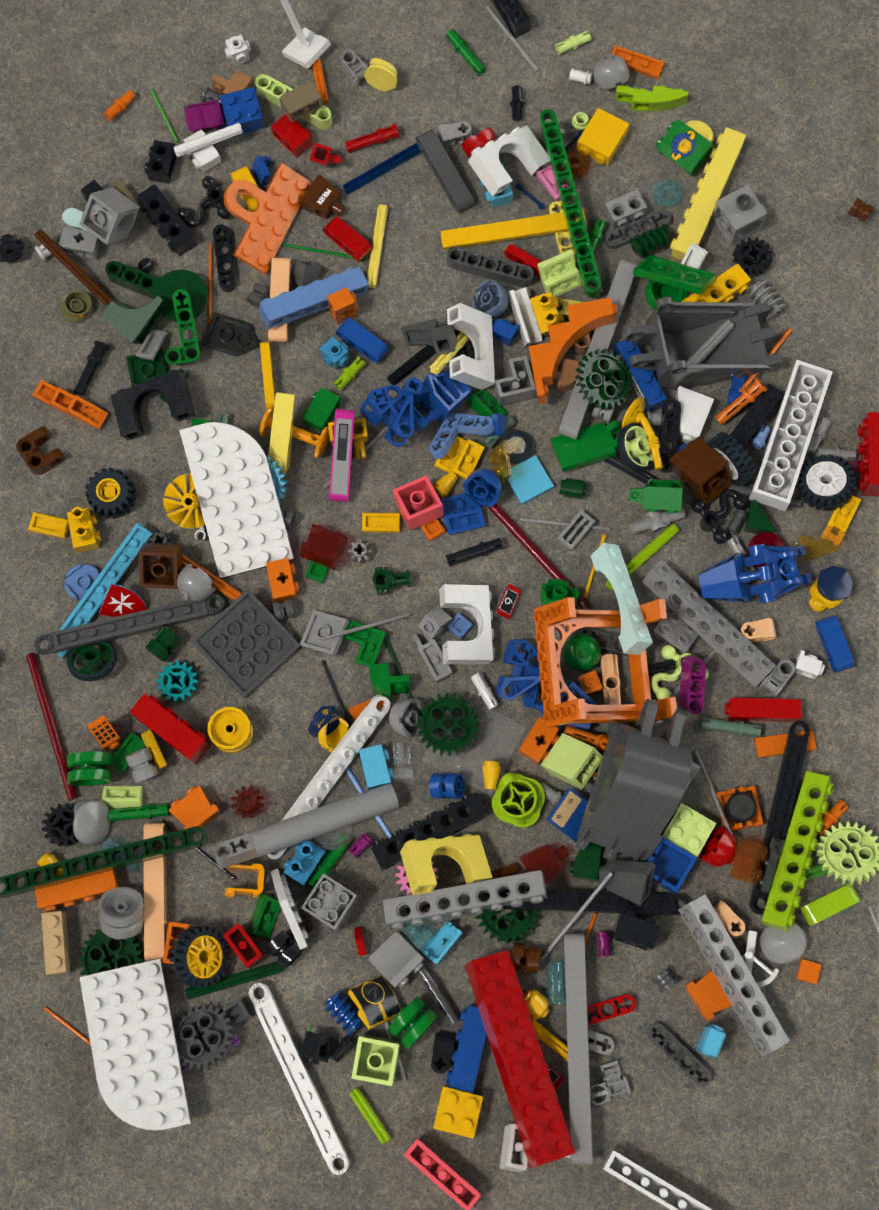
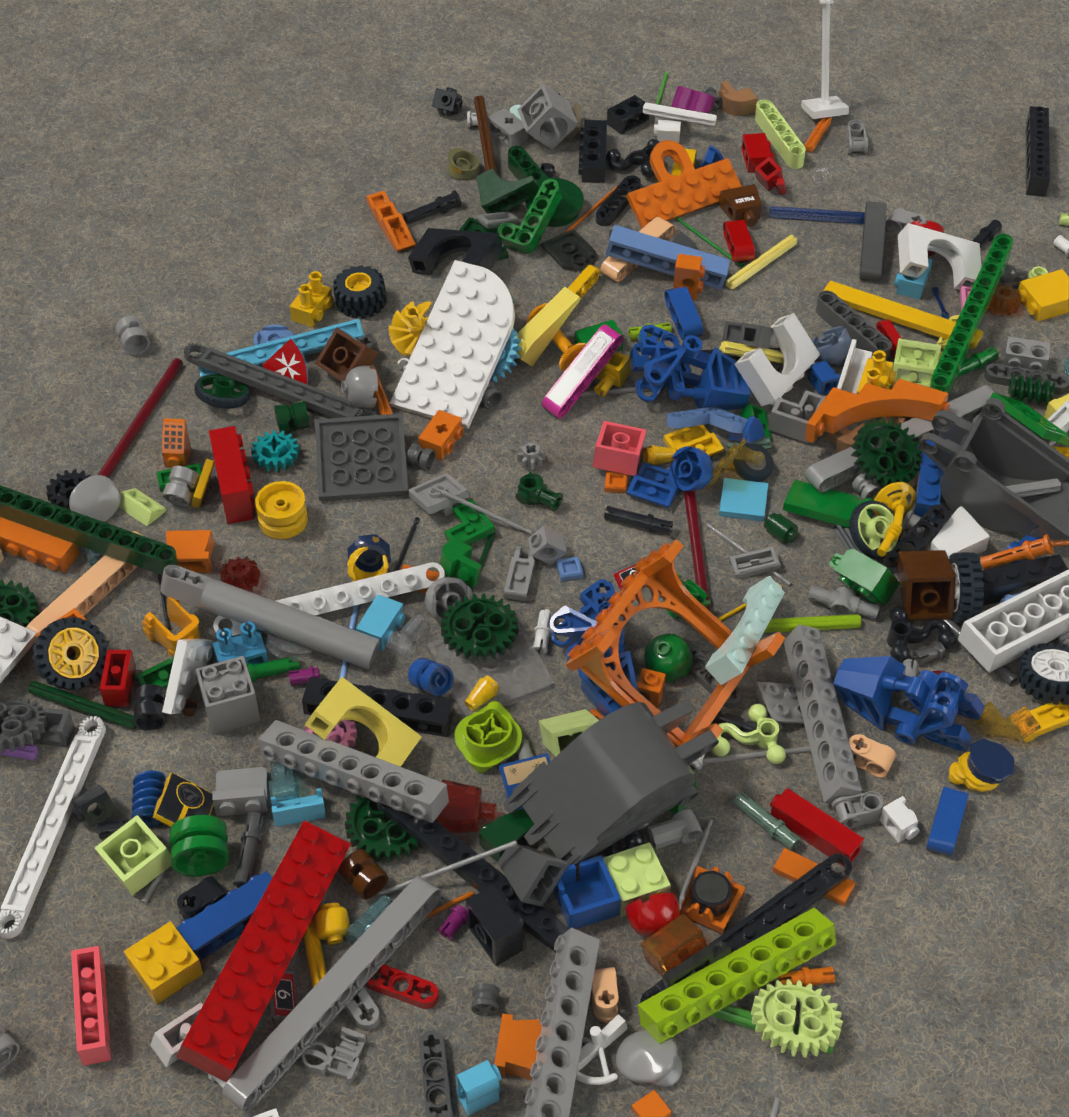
camera: 35 degrees right, 25 degrees down
(34, 440) = (331, 234): reddish brown piece -> none
(49, 525) = (285, 286): yellow tile -> none
(88, 768) = (134, 458): green wheel -> none
(119, 105) = (629, 66): orange pin -> none
(121, 913) = (43, 576): light grey wheel -> none
(139, 812) = (147, 526): green pin -> none
(237, 50) = (763, 79): white brick -> none
(244, 109) = (732, 117): blue brick -> none
(300, 101) = (783, 126): dark tan brick -> none
(316, 572) = (479, 450): green tile -> none
(323, 546) = (501, 431): clear red hips -> none
(334, 353) = (649, 306): dark azure brick -> none
(359, 939) = (224, 752): red tile -> none
(370, 1115) = (80, 907): lime axle -> none
(380, 135) = (835, 192): red pin -> none
(380, 522) = (572, 450): yellow tile -> none
(381, 75) = (874, 151): light yellow hat -> none
(461, 47) = (968, 174): green pin -> none
(477, 601) = (600, 550): white arch -> none
(508, 33) = (1023, 193): light grey axle -> none
(530, 748) = (555, 700): orange brick -> none
(610, 671) = (682, 690): light nougat piece -> none
(688, 676) = (767, 743): magenta beam -> none
(757, 520) = (951, 659): dark green slope -> none
(830, 904) = (733, 1058): lime beam -> none

